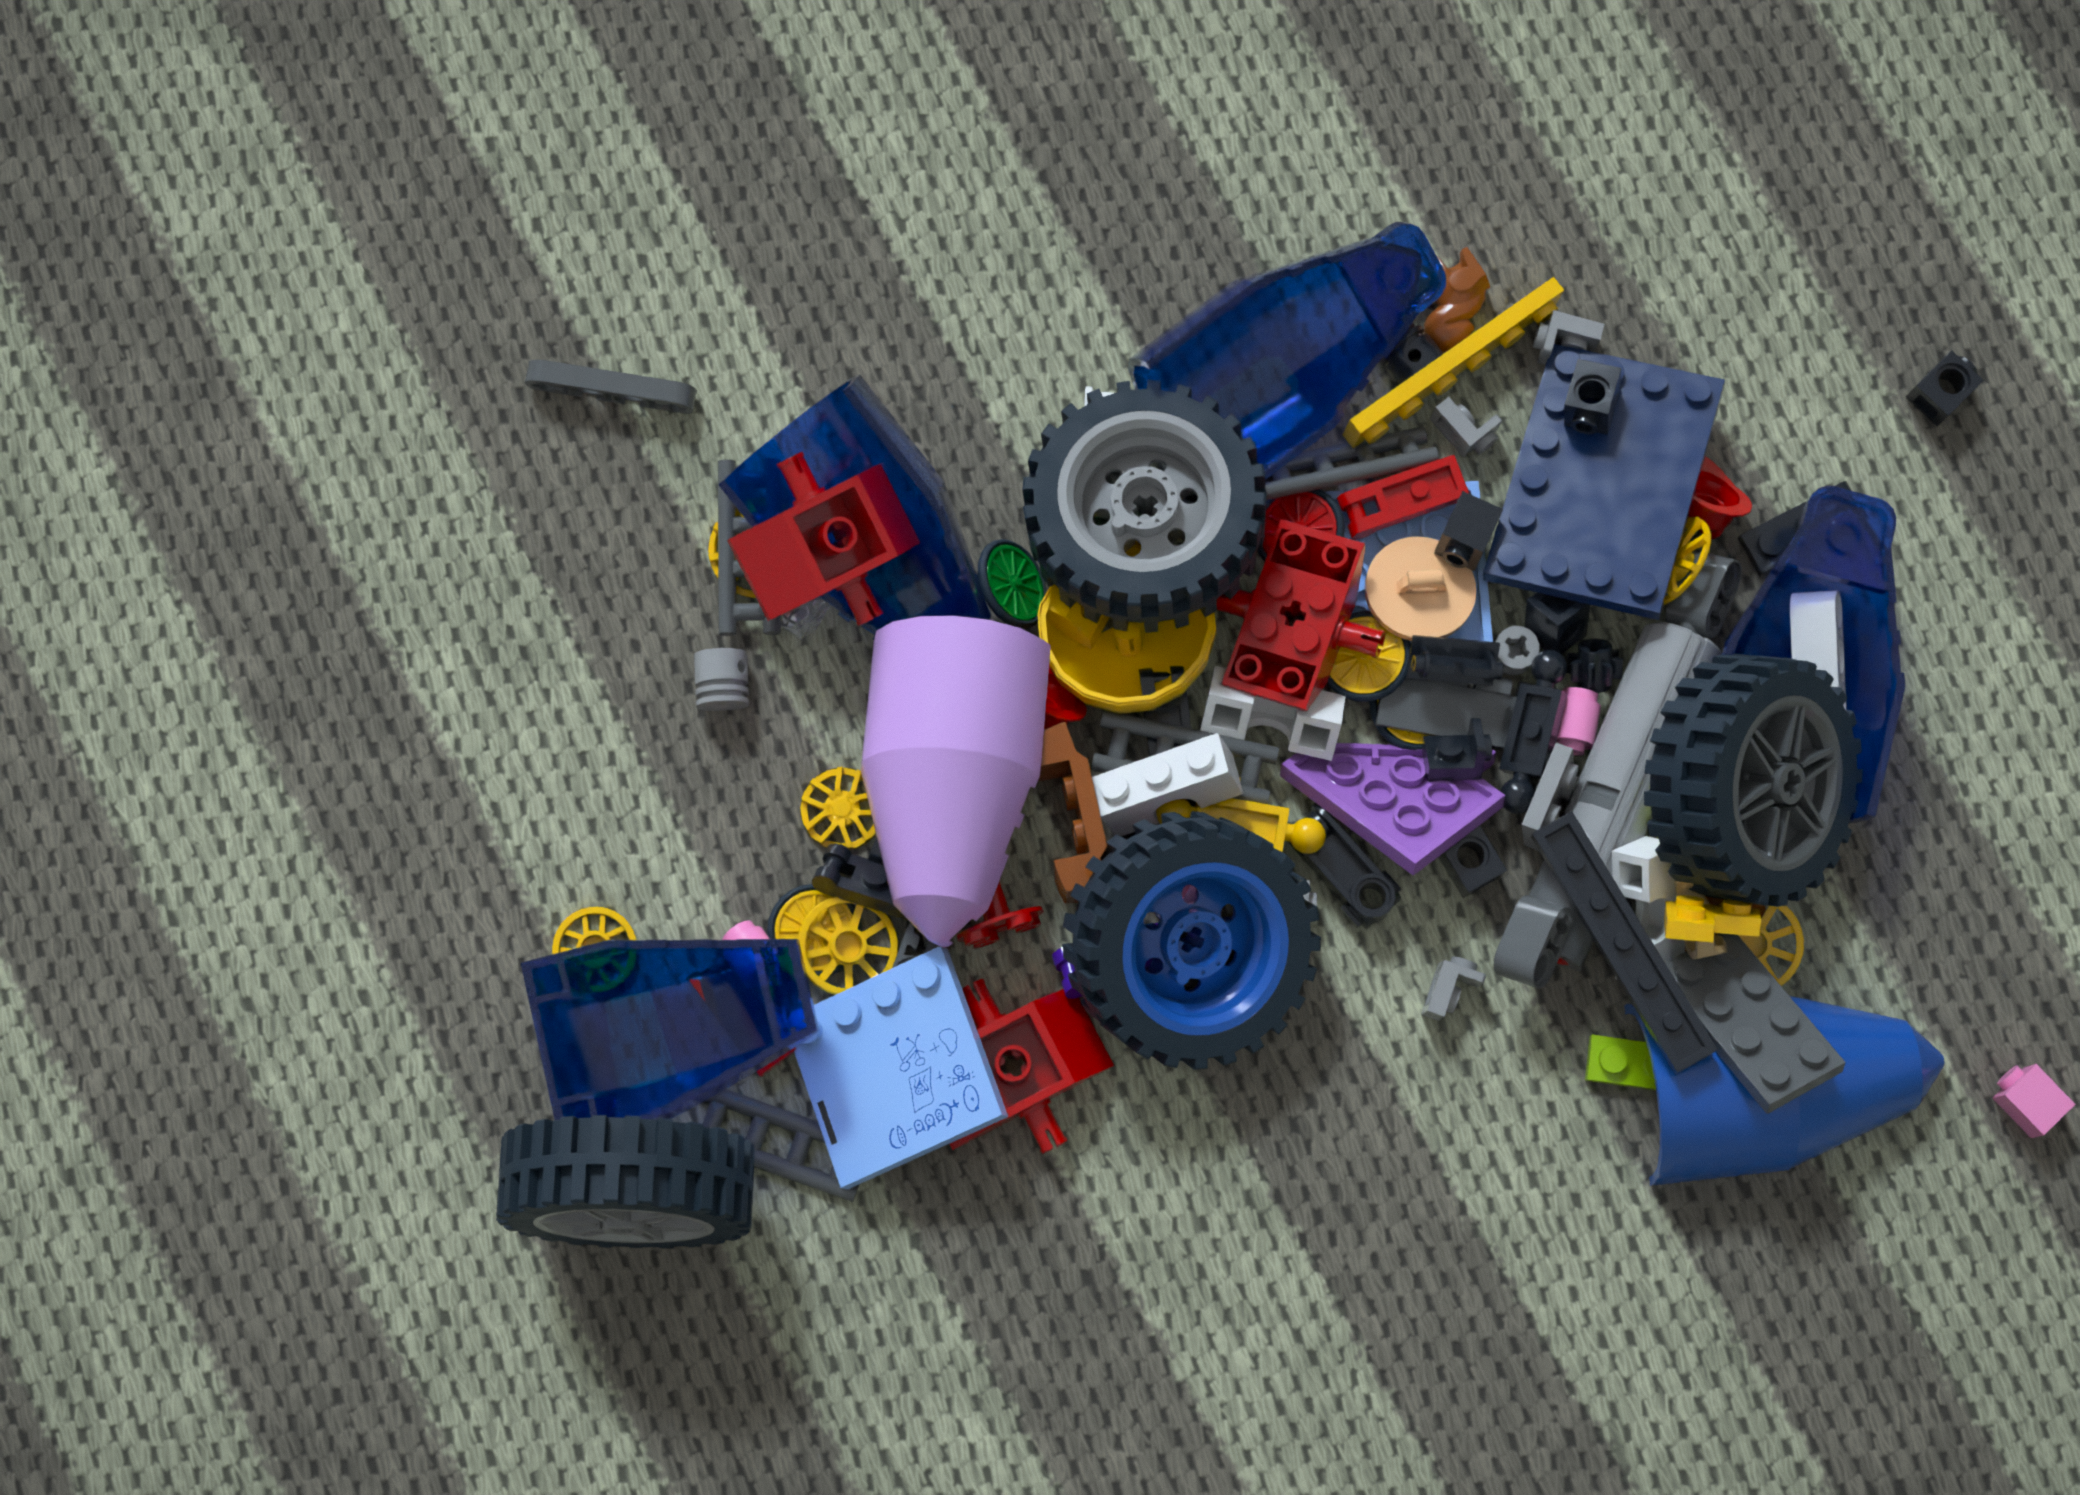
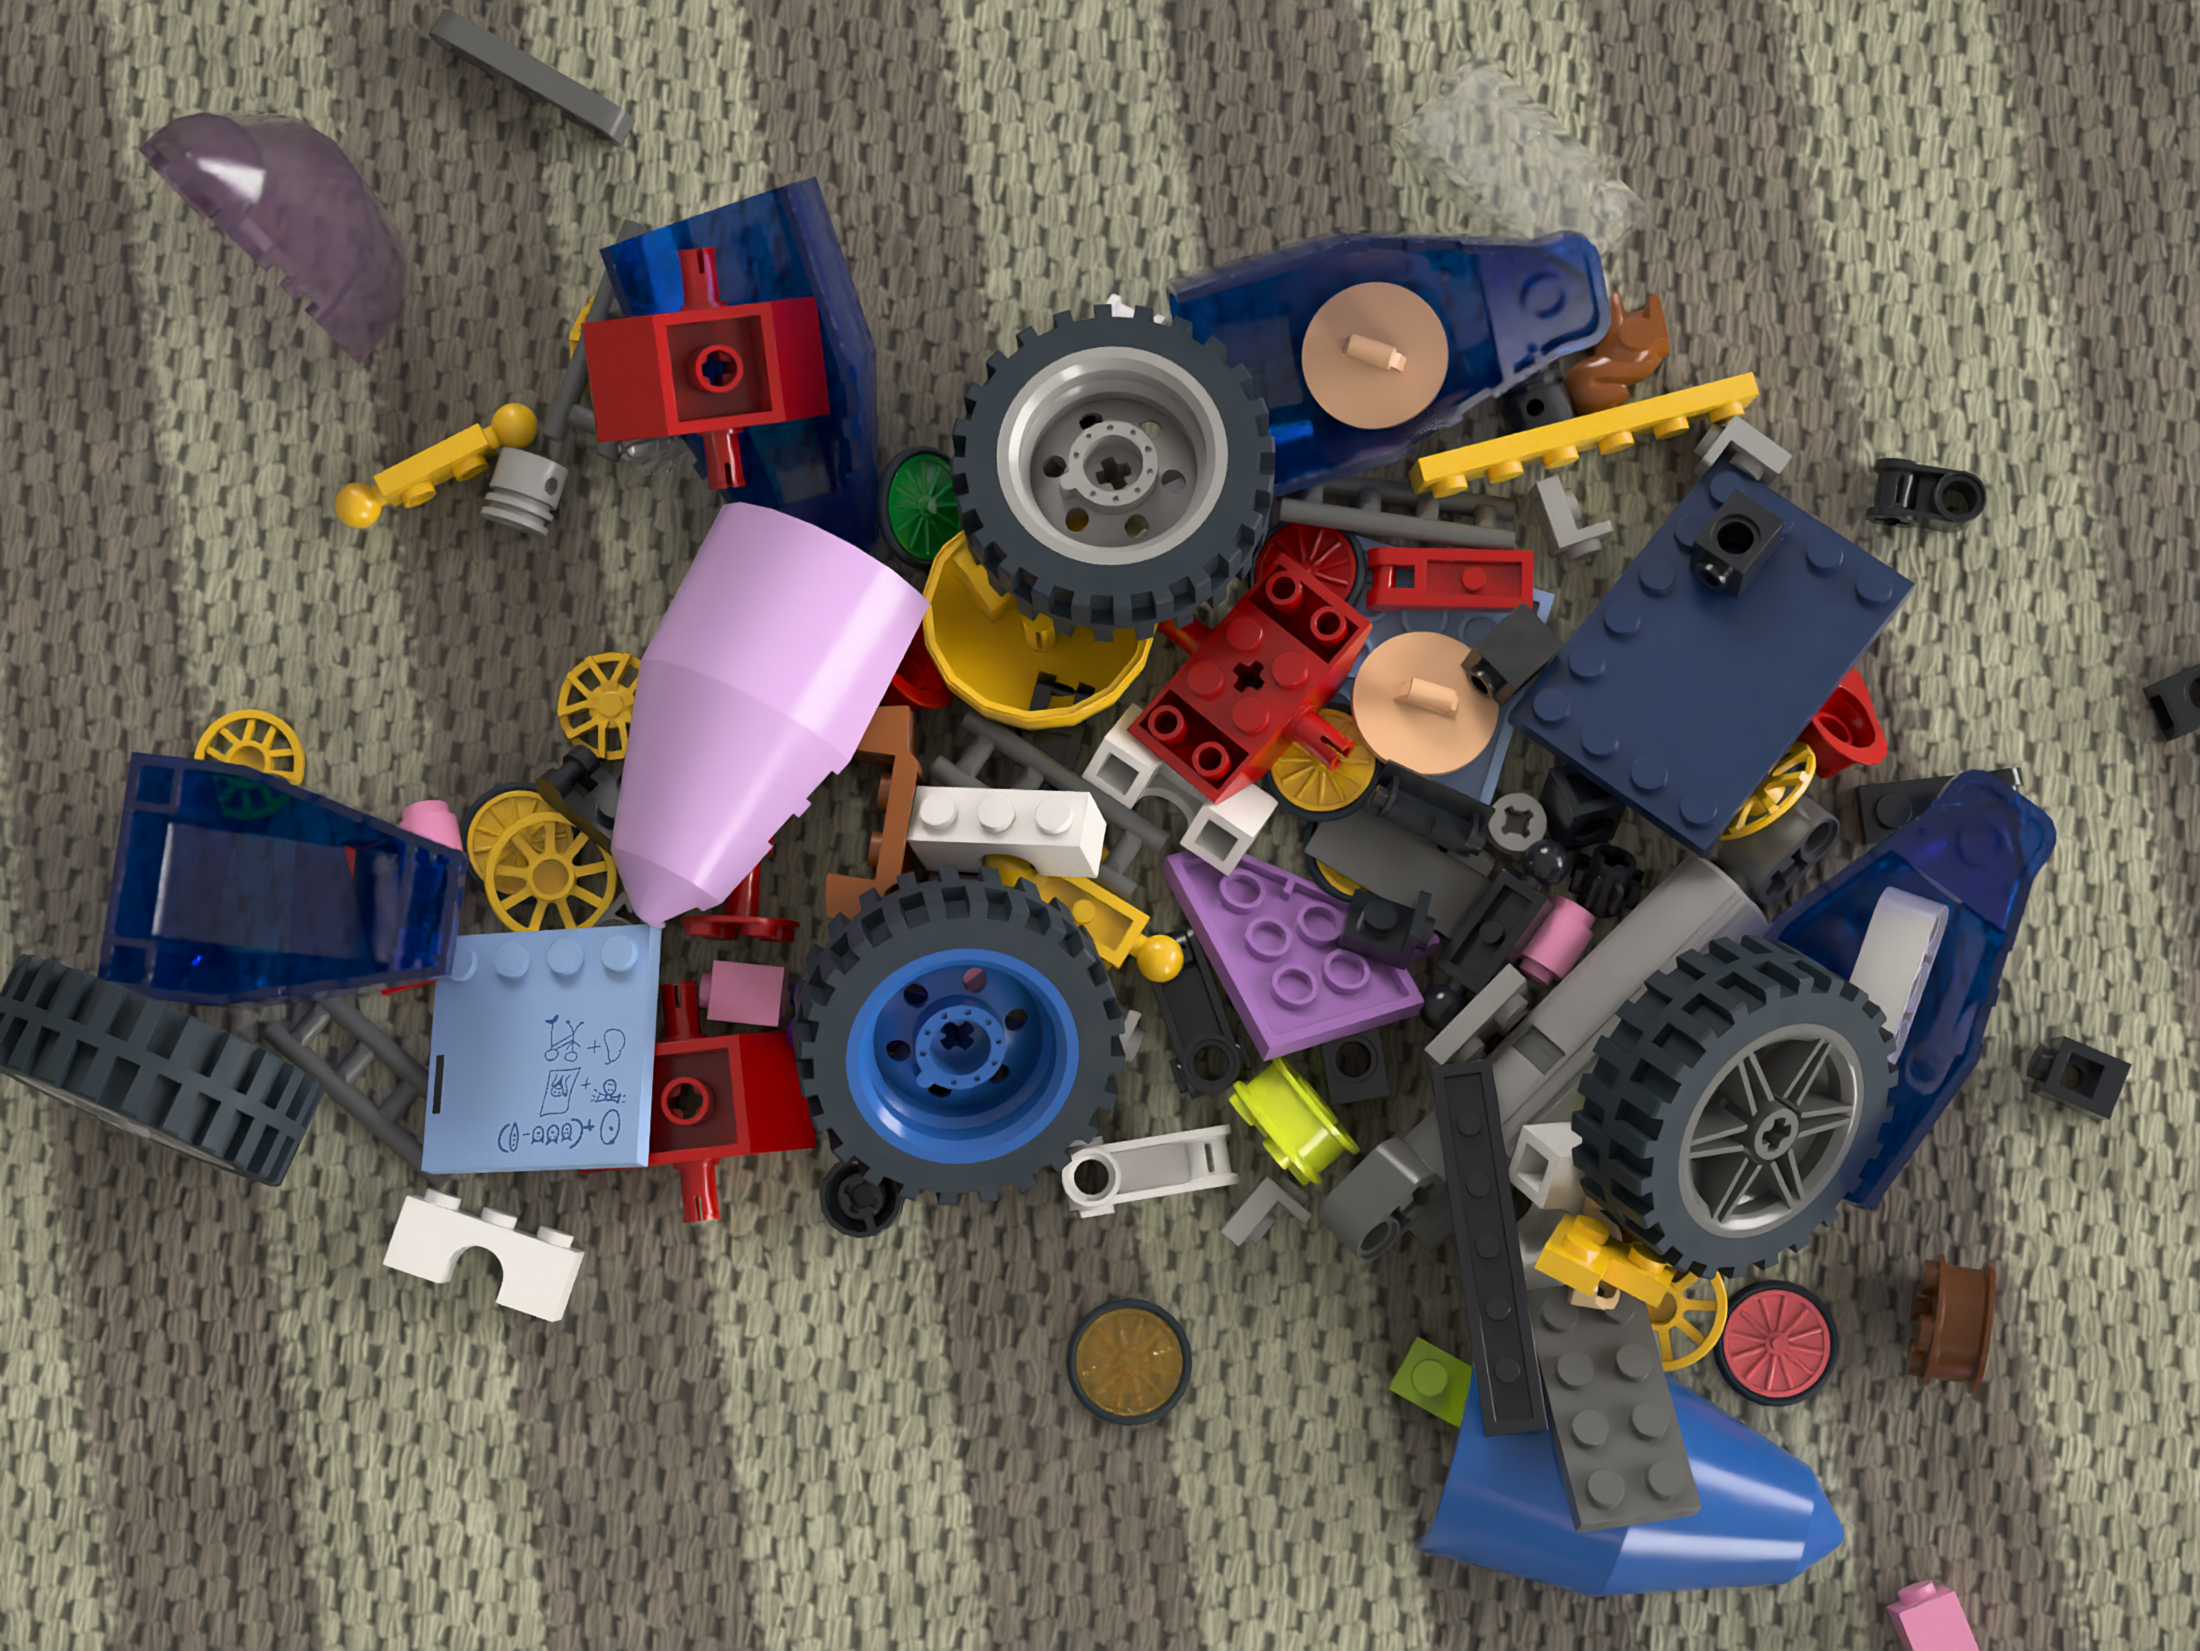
camera: 30 degrees right, 5 degrees up
(492, 524) = (296, 205): none -> clear purple windscreen
(637, 701) = (457, 456): none -> yellow plate
(866, 1229) = (535, 1267): none -> white arch
(1021, 975) = (745, 994): none -> bright pink brick
(1159, 1089) = (856, 1205): none -> black wheel
(1288, 361) = (1375, 356): none -> light nougat shield
(1328, 193) = (1513, 162): none -> clear piece
(1356, 988) = (1150, 1168): none -> white piece
(1396, 1132) = (1129, 1361): none -> clear yellow wheel
(1447, 913) = (1294, 1120): none -> neon yellow wheel
(1696, 322) = (1920, 496): none -> black piece
(1842, 944) = (1777, 1343): none -> coral wheel
(1961, 878) = (1954, 1323): none -> reddish brown wheel
(1985, 669) = (2098, 1081): none -> black brick

